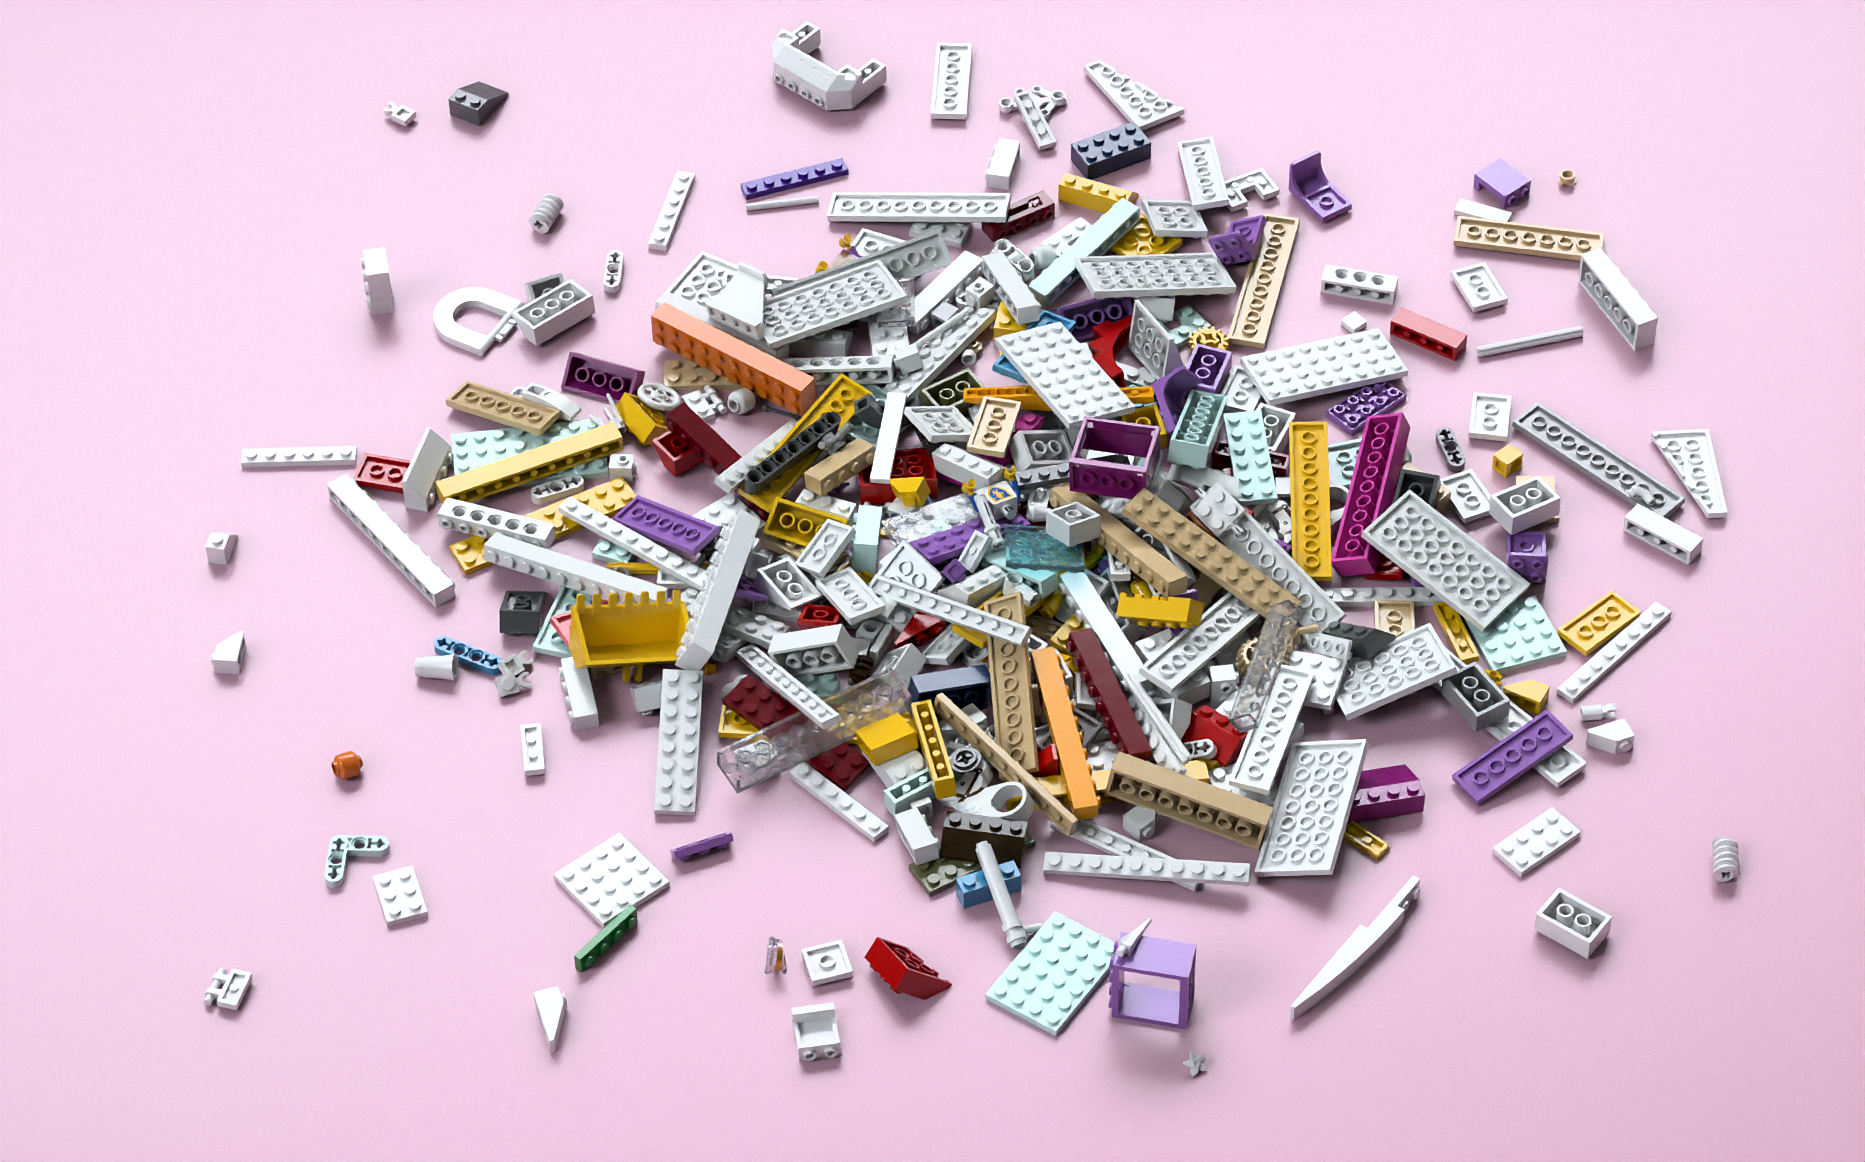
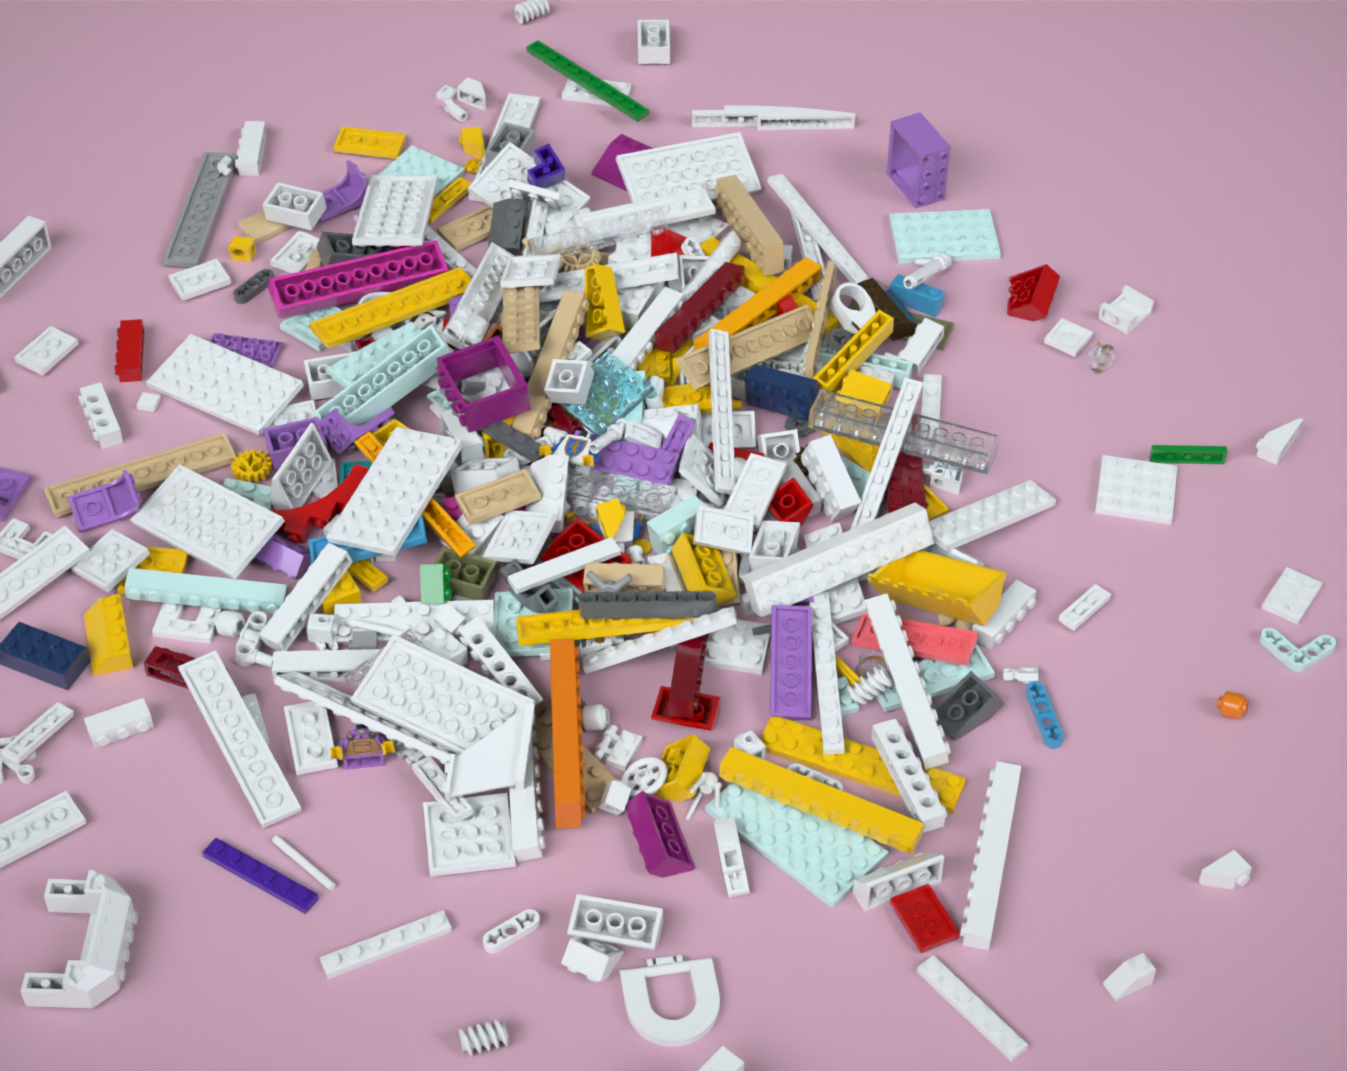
camera: 130 degrees left, 0 degrees up
(437, 667) = (1081, 717): white plant -> none
(503, 408) = (769, 879): tan plate -> none
(509, 684) = (1044, 662): white plate -> none
(596, 553) = (870, 686): none -> white piece
(656, 368) = (615, 797): none -> white brick
(702, 847) = (1054, 455): medium lavender plate -> none
(952, 364) = (435, 583): none -> brick
(1128, 942) = (925, 143): white piece -> none
(1157, 717) = (699, 264): white axle -> none
(1250, 584) = (531, 271): none -> white plate
(1360, 647) = (523, 191): none -> white plate
(1390, 675) = (547, 169): none -> dark purple brick
(1512, 757) = (541, 119): medium lavender plate -> none
(1529, 341) = (89, 298): white axle -> none
(1546, 824) = (587, 81): none -> green plate
(1613, 652) = (411, 129): white plate -> none
(1638, 724) = (447, 93): none -> white tile
(1694, 462) = (158, 167): white wing -> none

